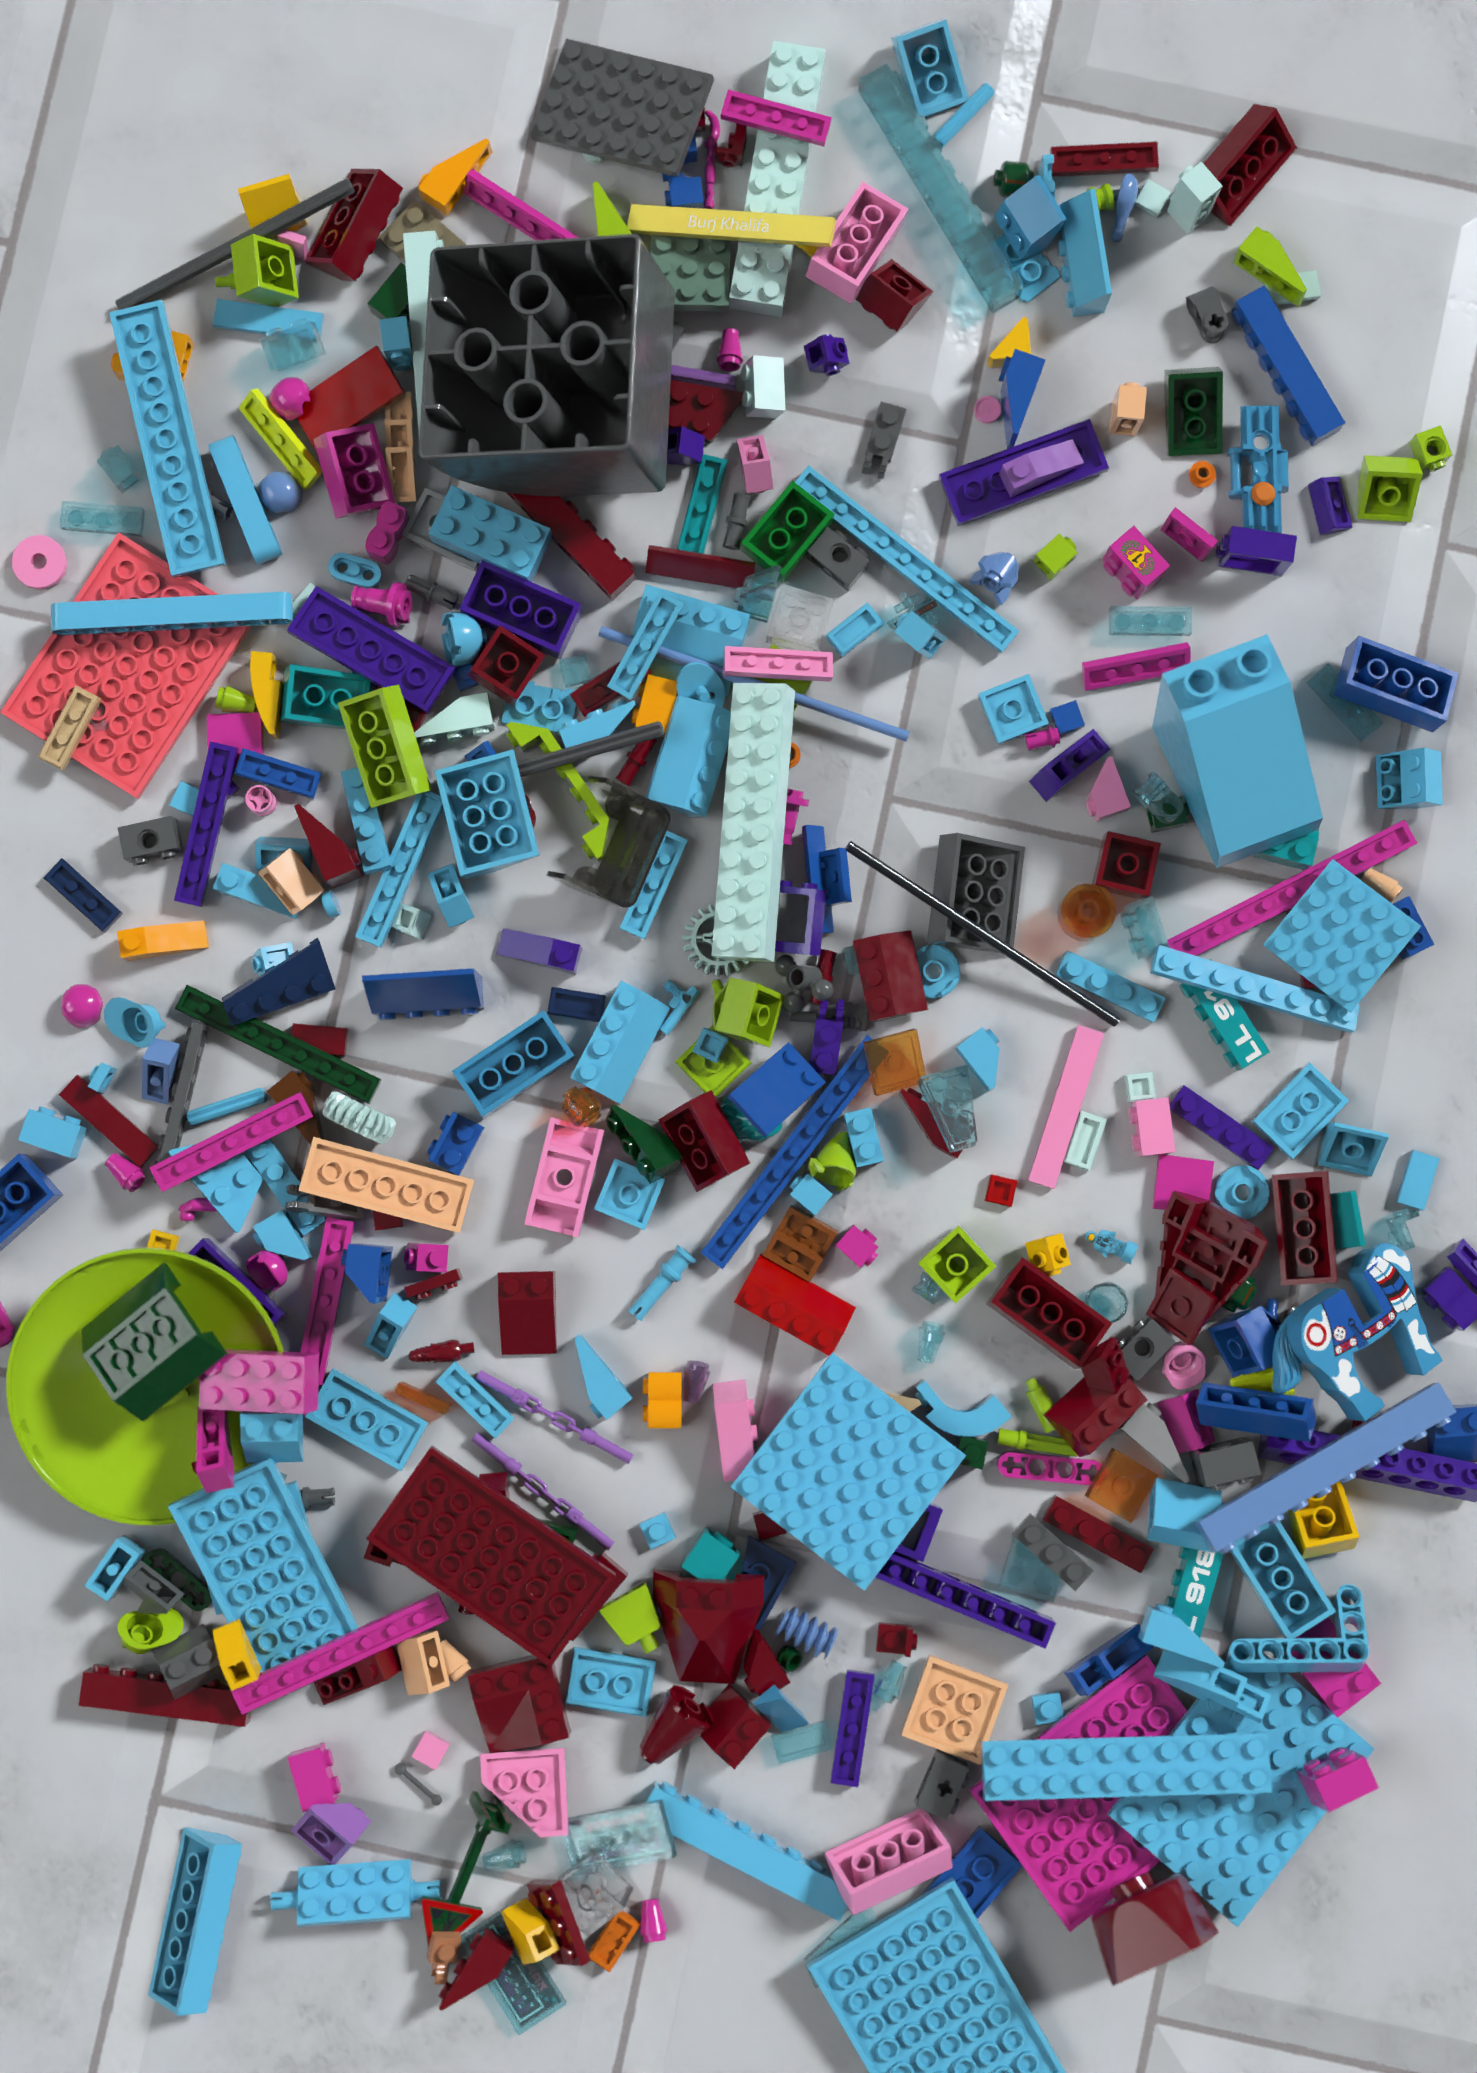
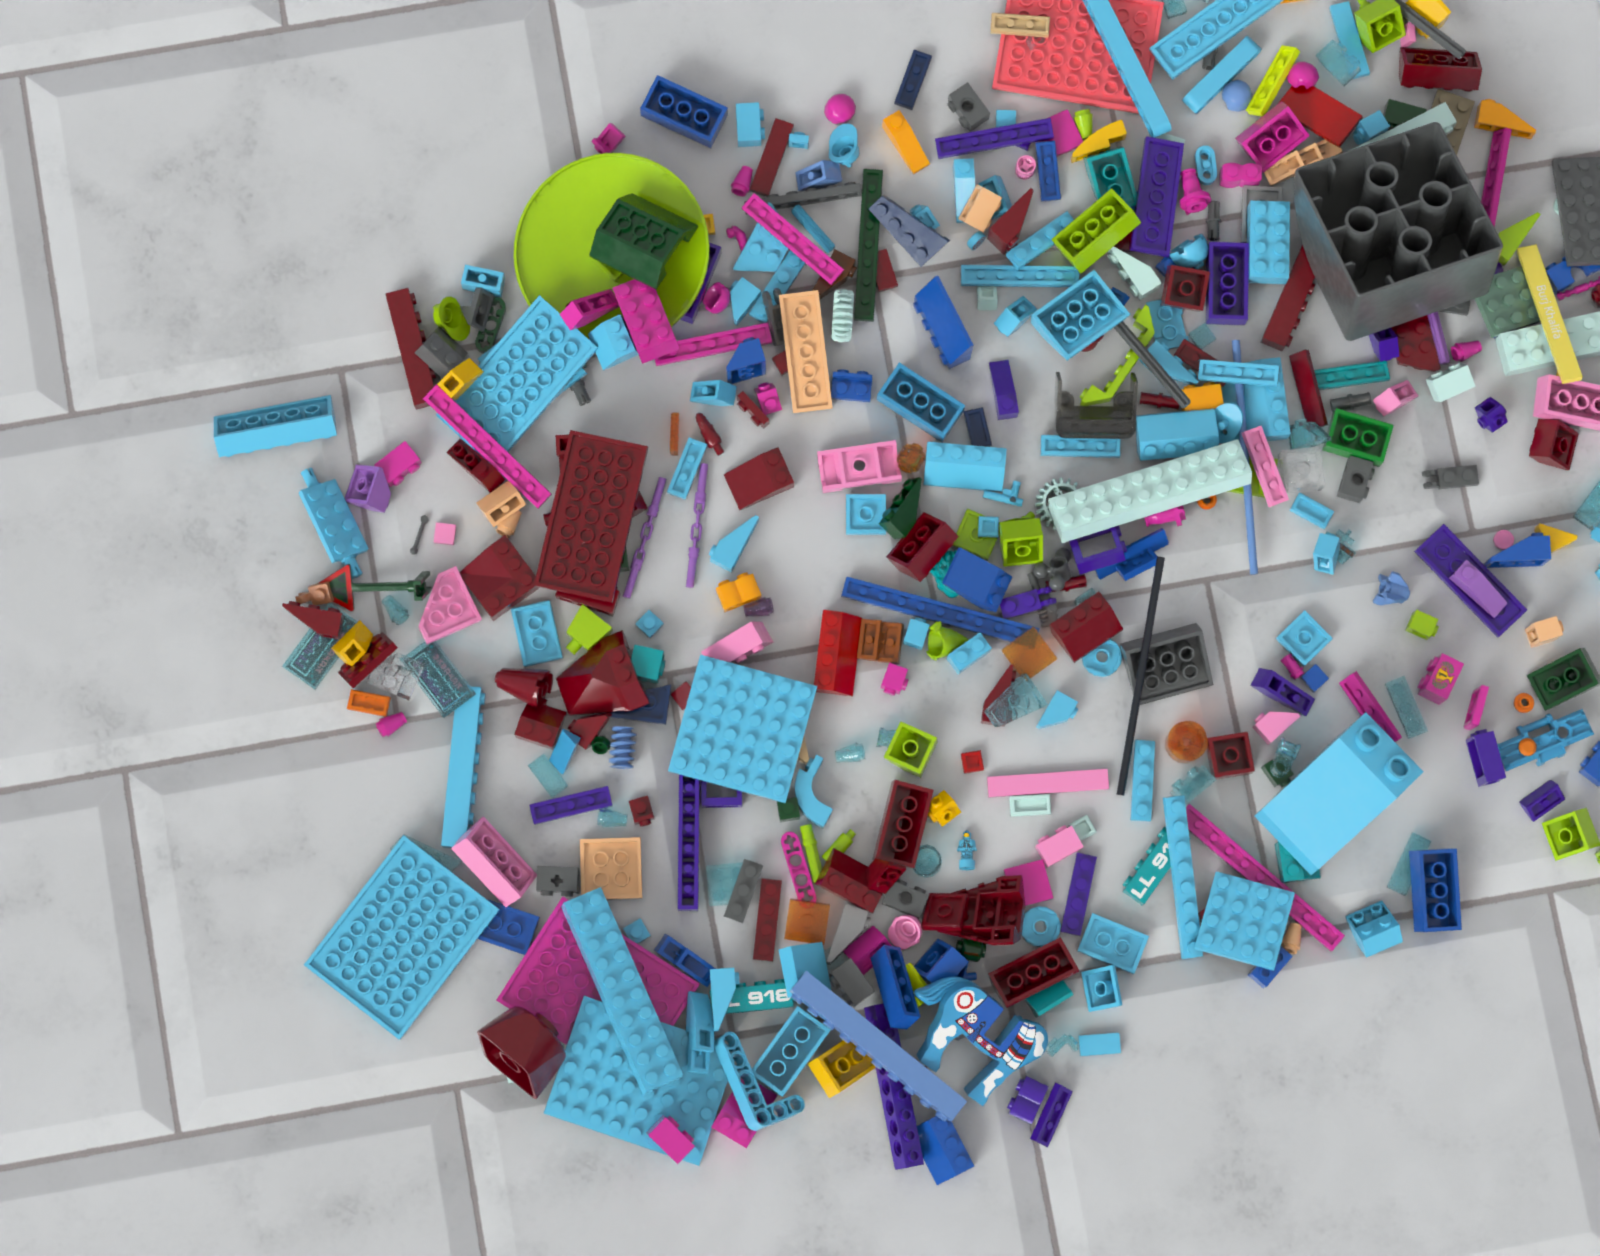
camera: 65 degrees right, 5 degrees down
(368, 1419) = (645, 403): medium azure plate -> none
(670, 1272) = (824, 562): medium azure pin -> none
(909, 562) = (1374, 526): medium azure plate -> none

